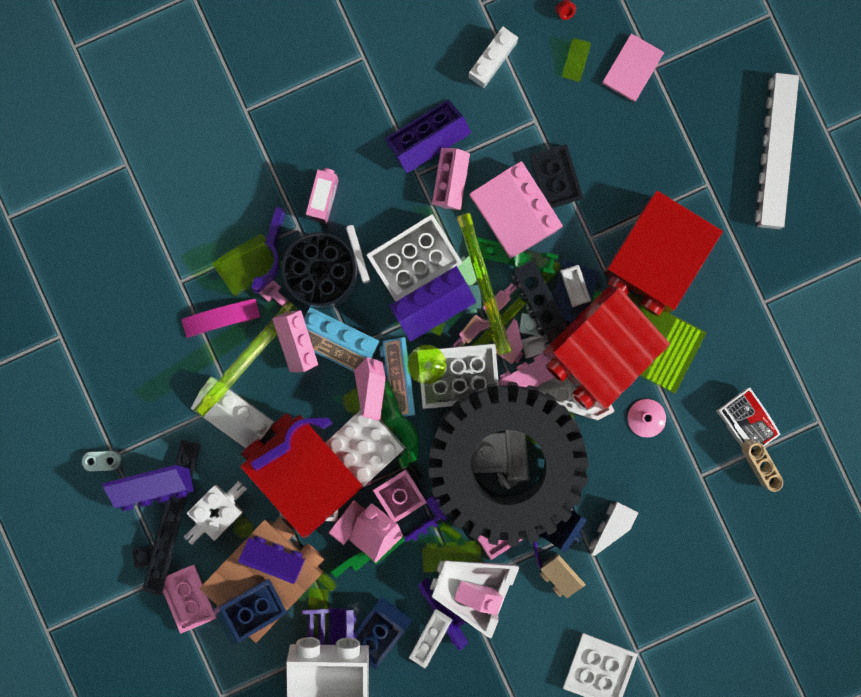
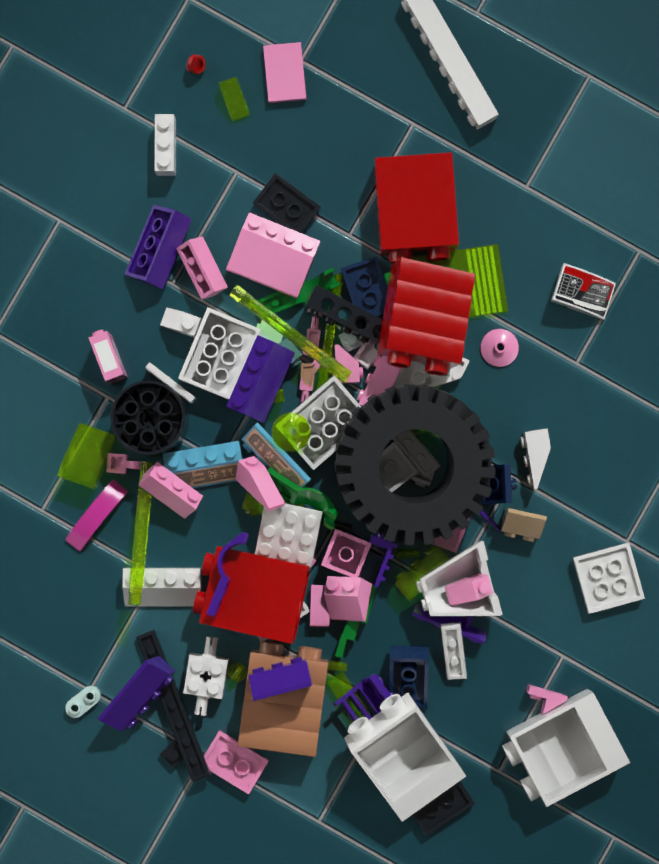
camera: 35 degrees left, 0 degrees up
(249, 611) = (292, 734): dark blue slope -> none
(271, 241) = (92, 422): dark purple piece -> none
(402, 210) = (181, 322): none -> white slope
(575, 286) = (365, 282): white tile -> none
(769, 469) = (627, 318): tan beam -> none

